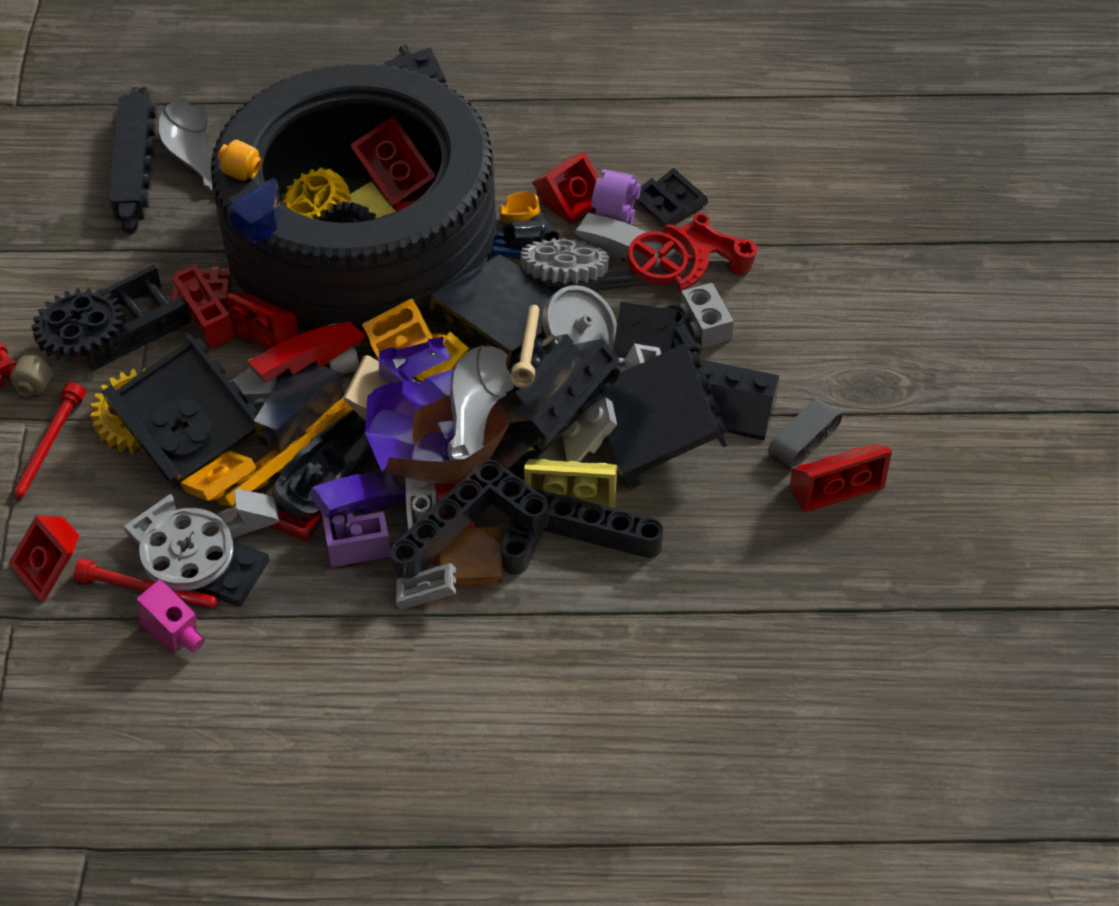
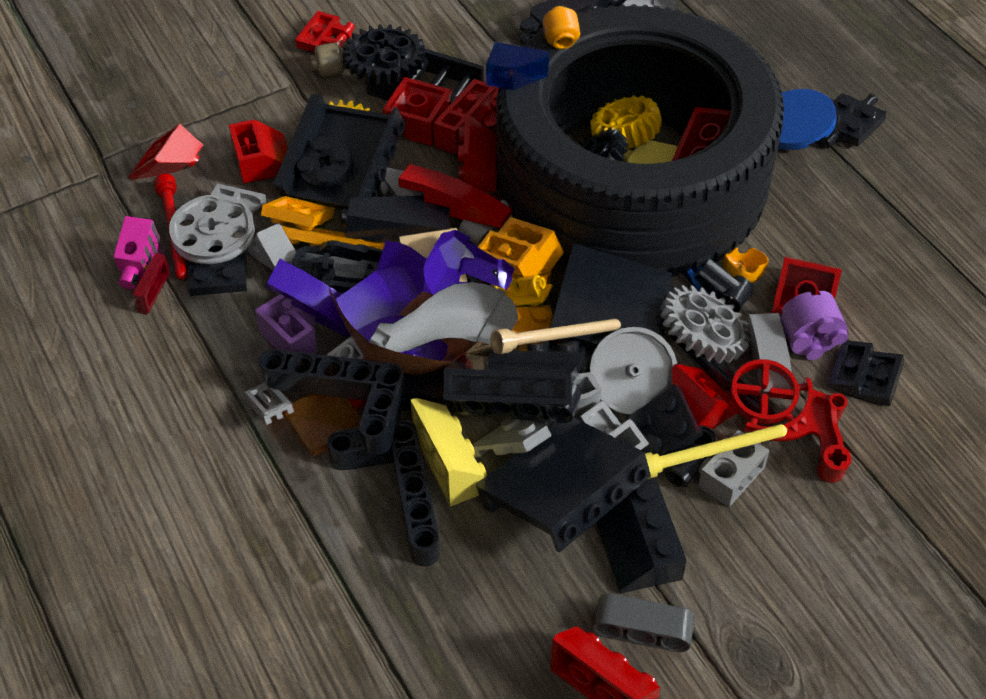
camera: 60 degrees right, 0 degrees up
(71, 396) = (328, 93): red piece -> none
(109, 479) = (257, 149): none -> red slope
(164, 328) = (419, 107): none -> red slope
(213, 627) = (151, 283): none -> dark red tile
(640, 295) = (705, 397): none -> red slope
(693, 303) = (657, 463): none -> light yellow piece

